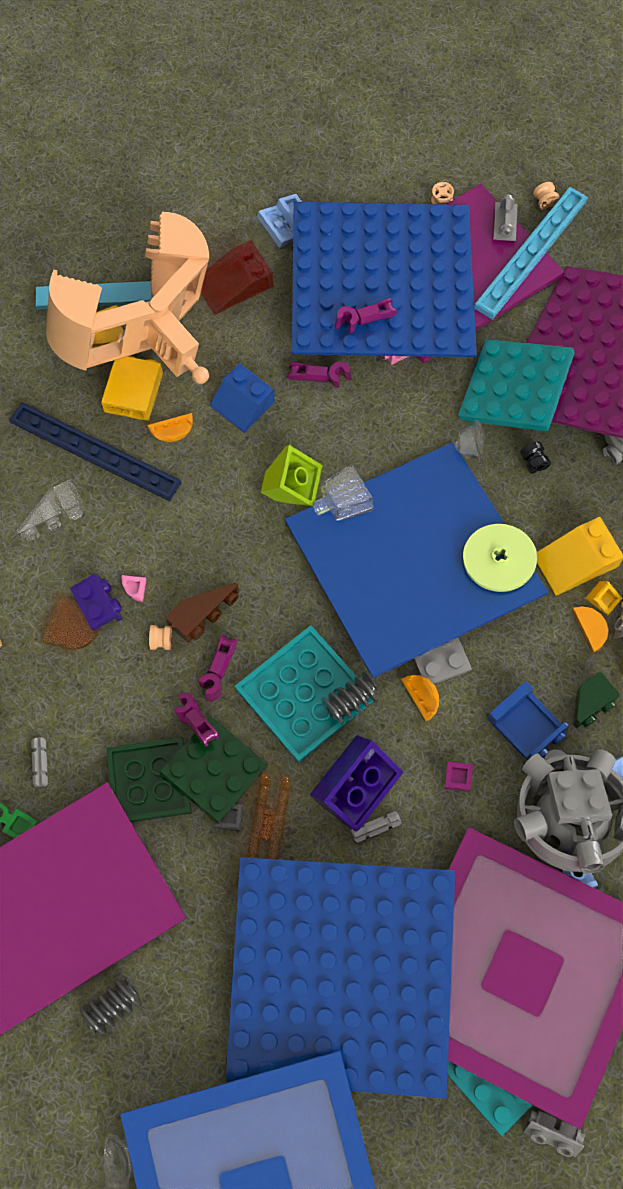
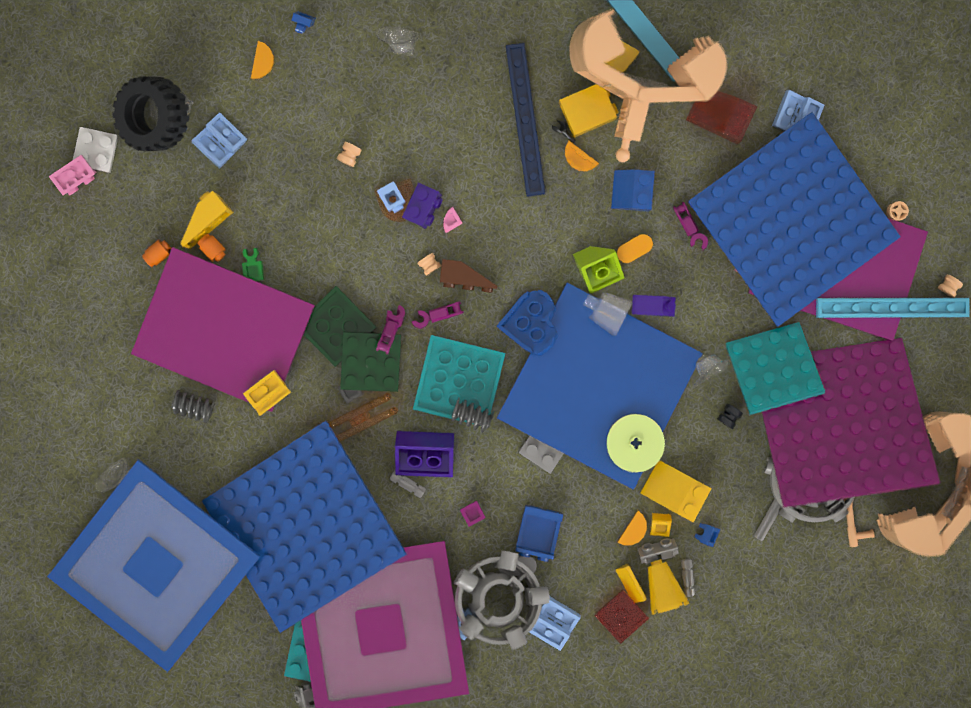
camera: 50 degrees right, 20 degrees up
(39, 762) = (298, 250): light grey axle -> none
(57, 617) = (388, 191): none -> light blue brick
(58, 500) = (470, 127): clear slope -> none
(131, 422) = (563, 126): none -> black hand
(161, 904) = (267, 392): none -> yellow plate
(299, 578) = (530, 322): none -> blue plate
(301, 433) = (634, 248): none -> light orange tile
(365, 314) = (750, 232): magenta piece -> none
(371, 449) = (653, 305): none -> dark purple slope
(423, 694) = (512, 454): light orange tile -> none
(505, 219) = (905, 272): light grey hinge -> none
(579, 797) = (505, 597): light grey plate -> none
(593, 697) = (584, 562): dark green slope -> none

